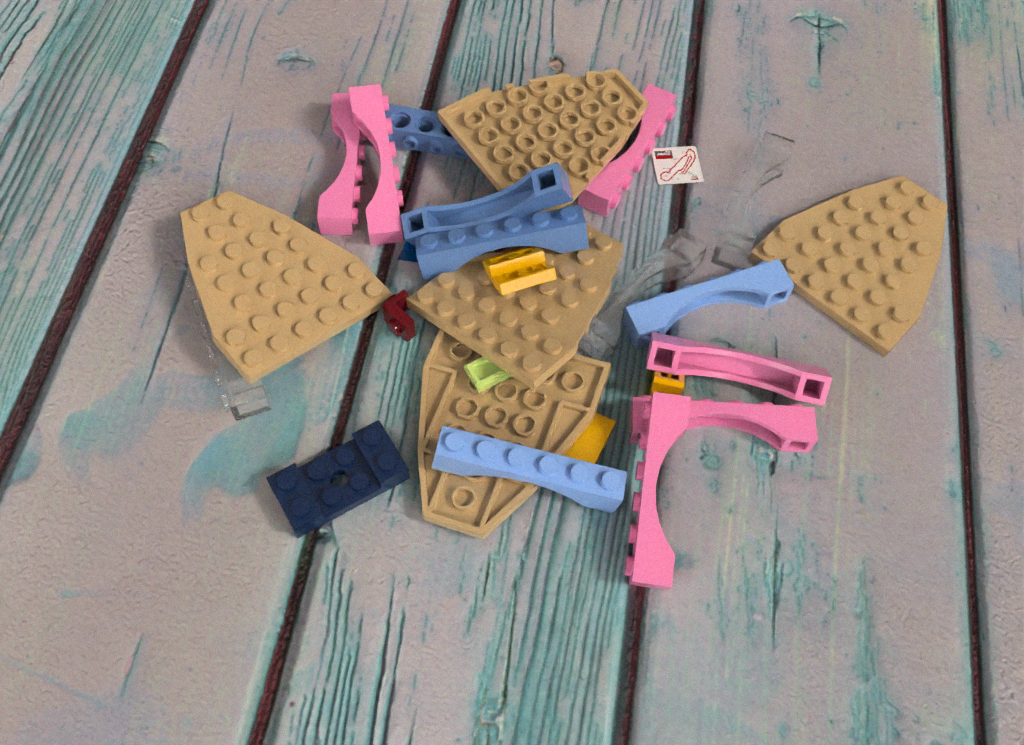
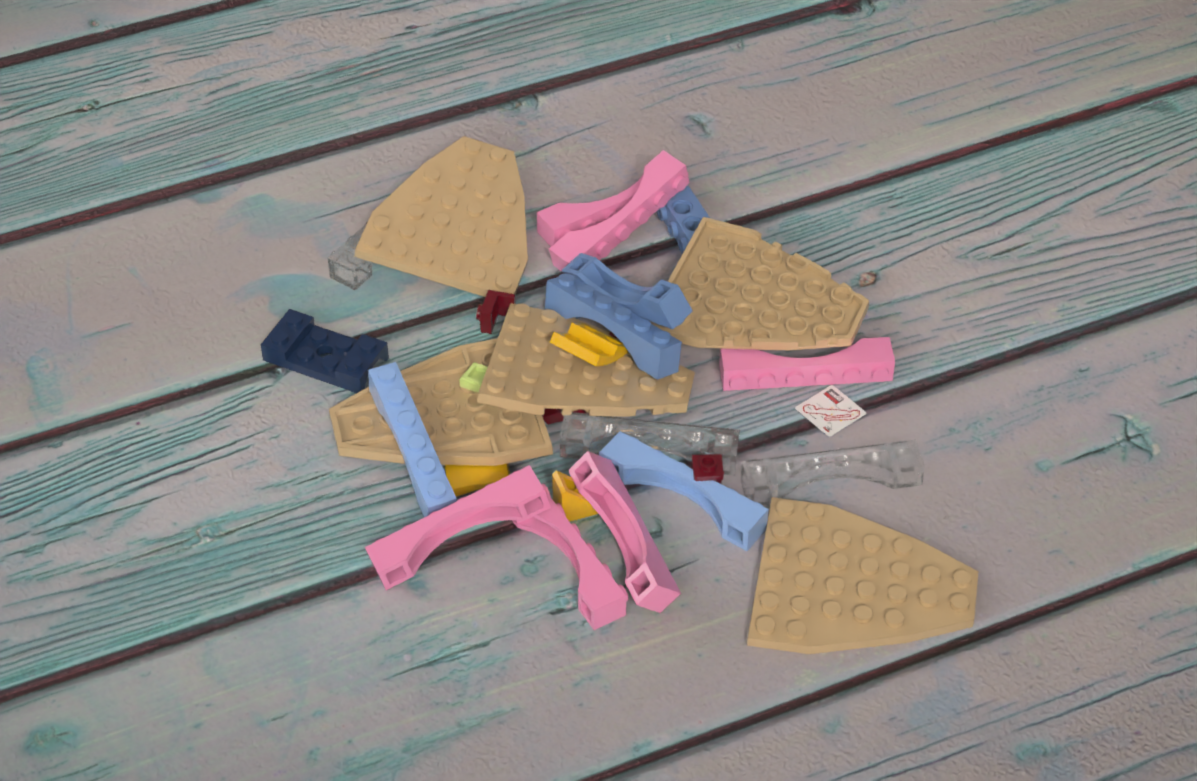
camera: 60 degrees right, 15 degrees down
(707, 271) = (708, 467): none -> dark red bracket

